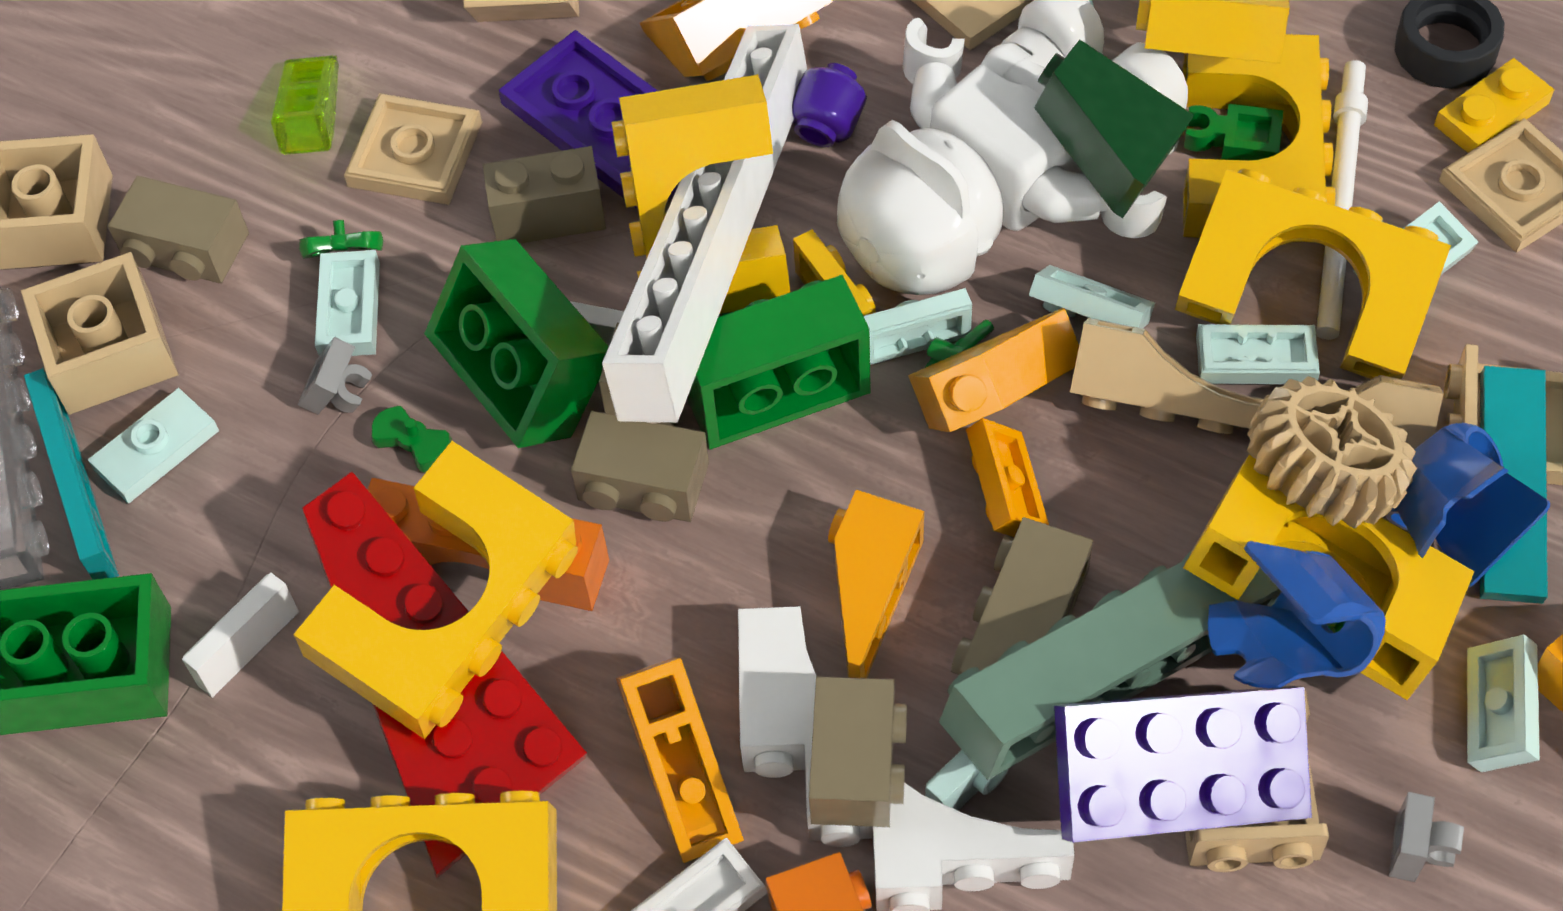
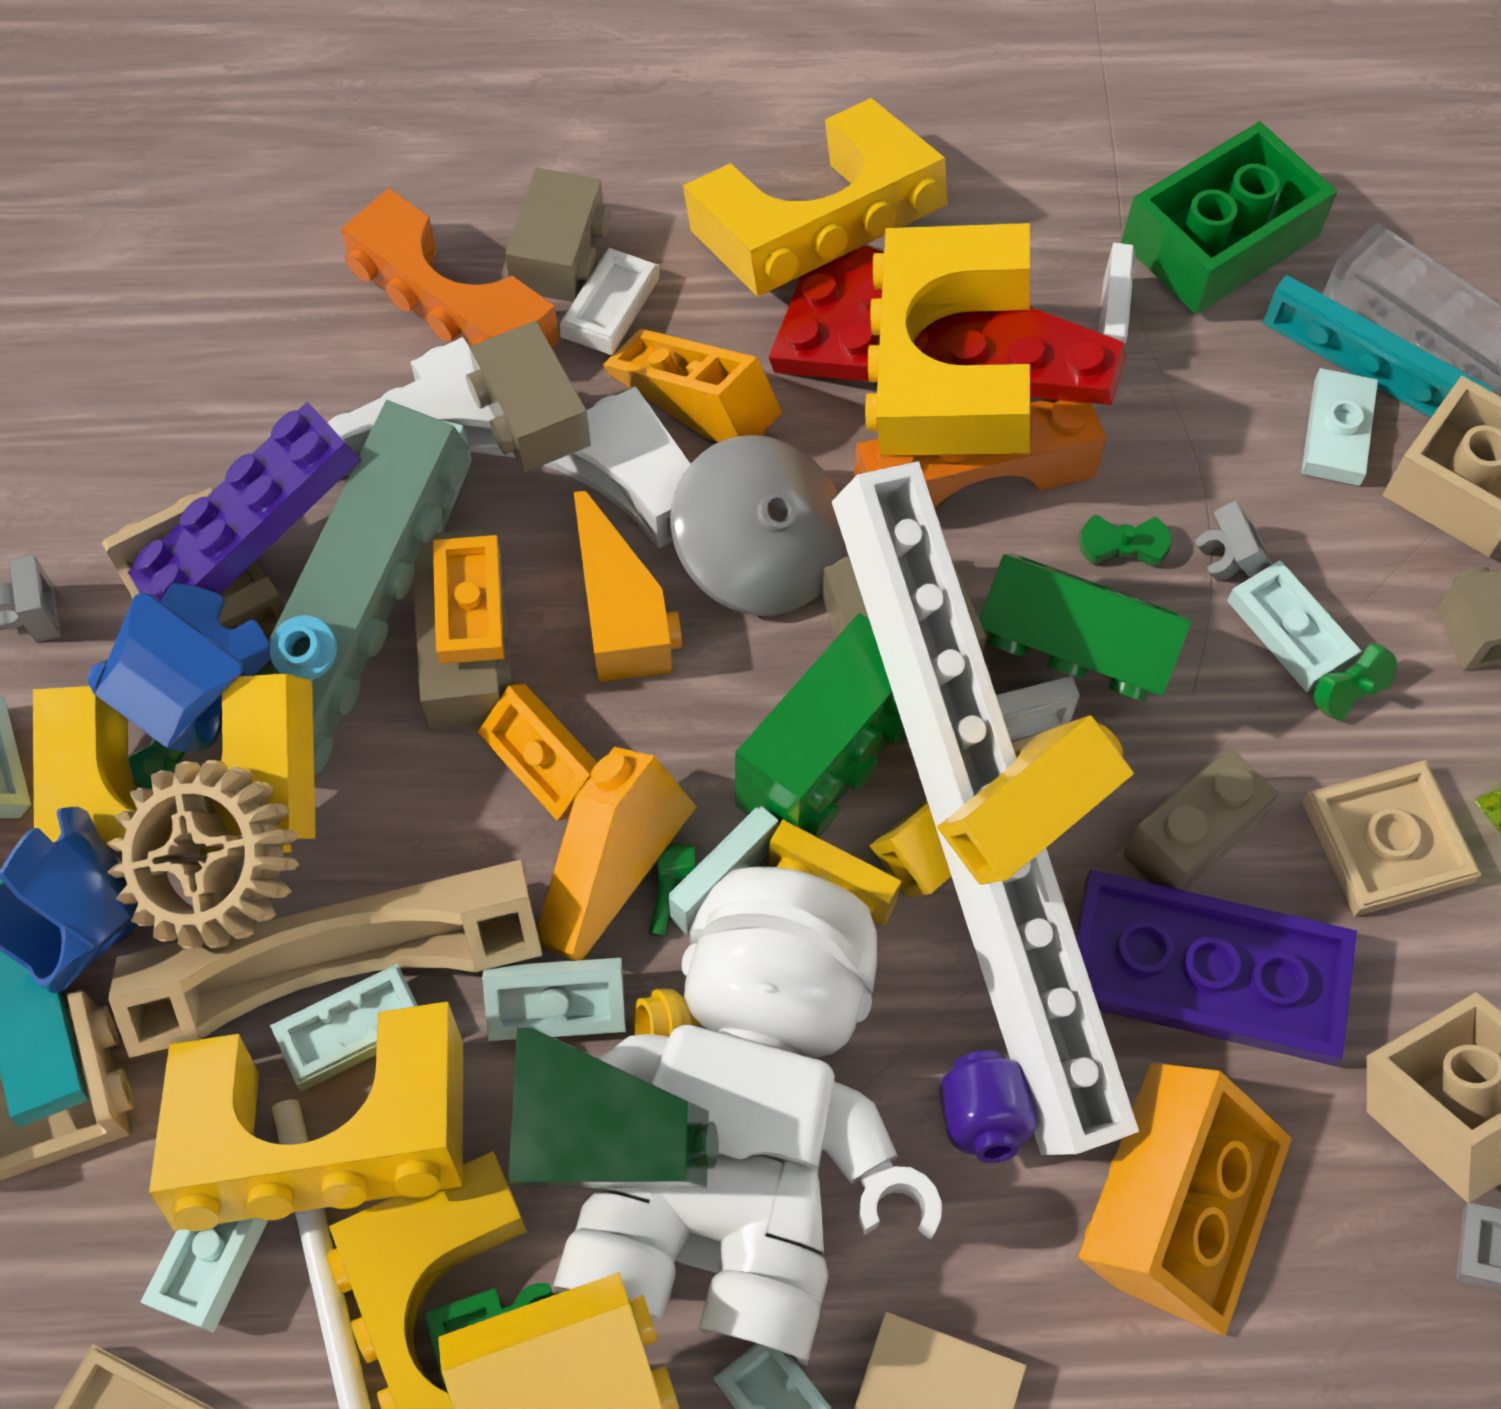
camera: 145 degrees right, 5 degrees up
(710, 574) = (733, 542): none -> light grey dish
(1011, 585) = (468, 599): none -> light orange plate
(1018, 252) = (661, 1013): none -> yellow plate
(1179, 589) = (318, 657): none -> medium azure plate

